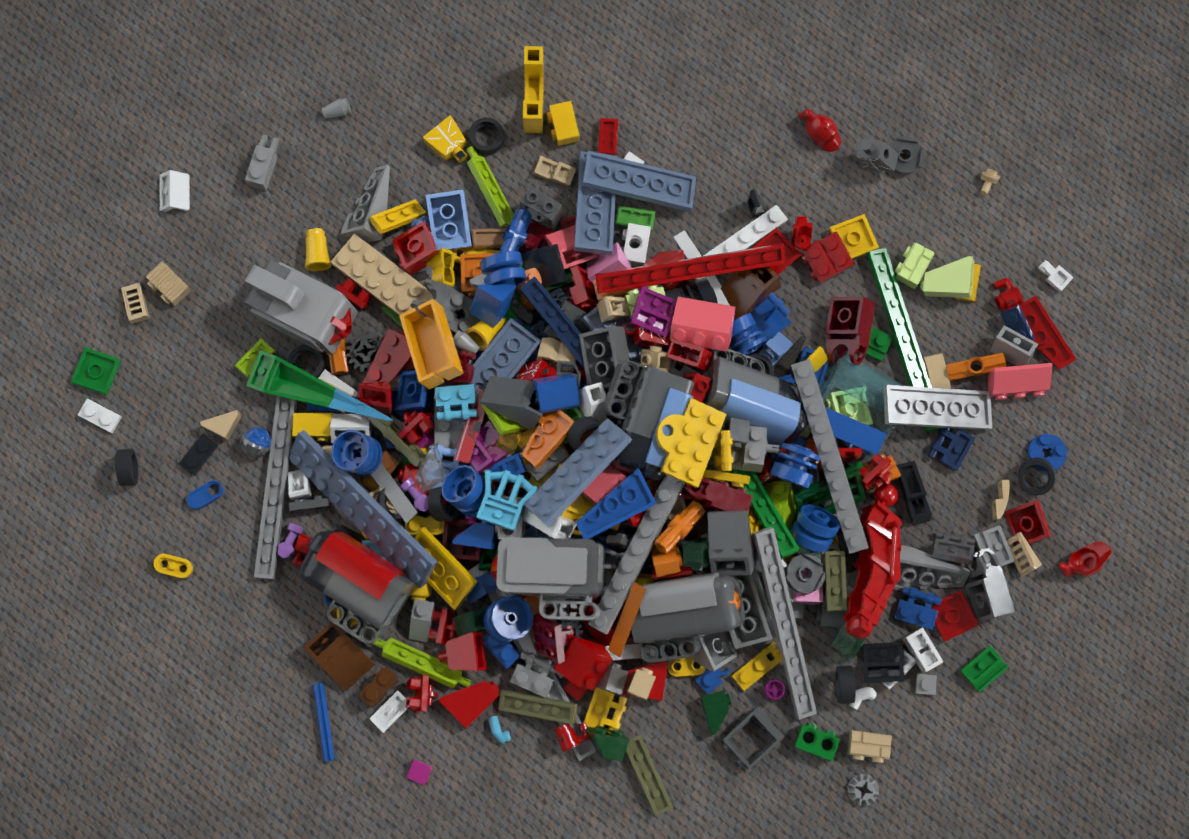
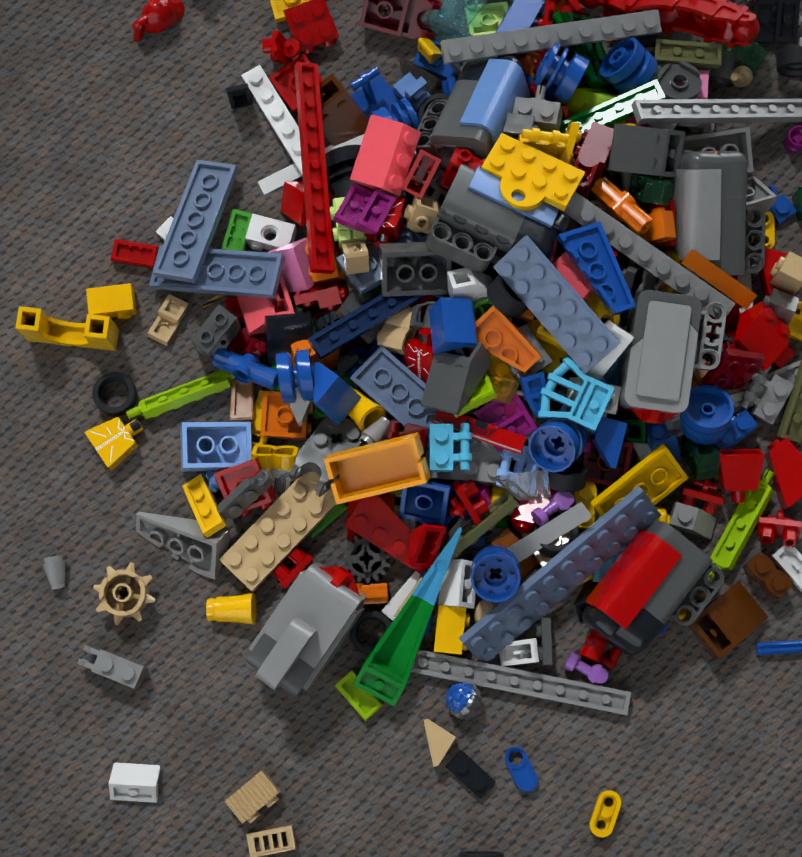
camera: 80 degrees left, 0 degrees up
(314, 156) = (116, 582): none -> tan brick
(406, 245) = (245, 494): none -> dark grey hinge
(757, 667) = (770, 156): yellow plate -> none
(826, 635) = (741, 76): none -> tan plate

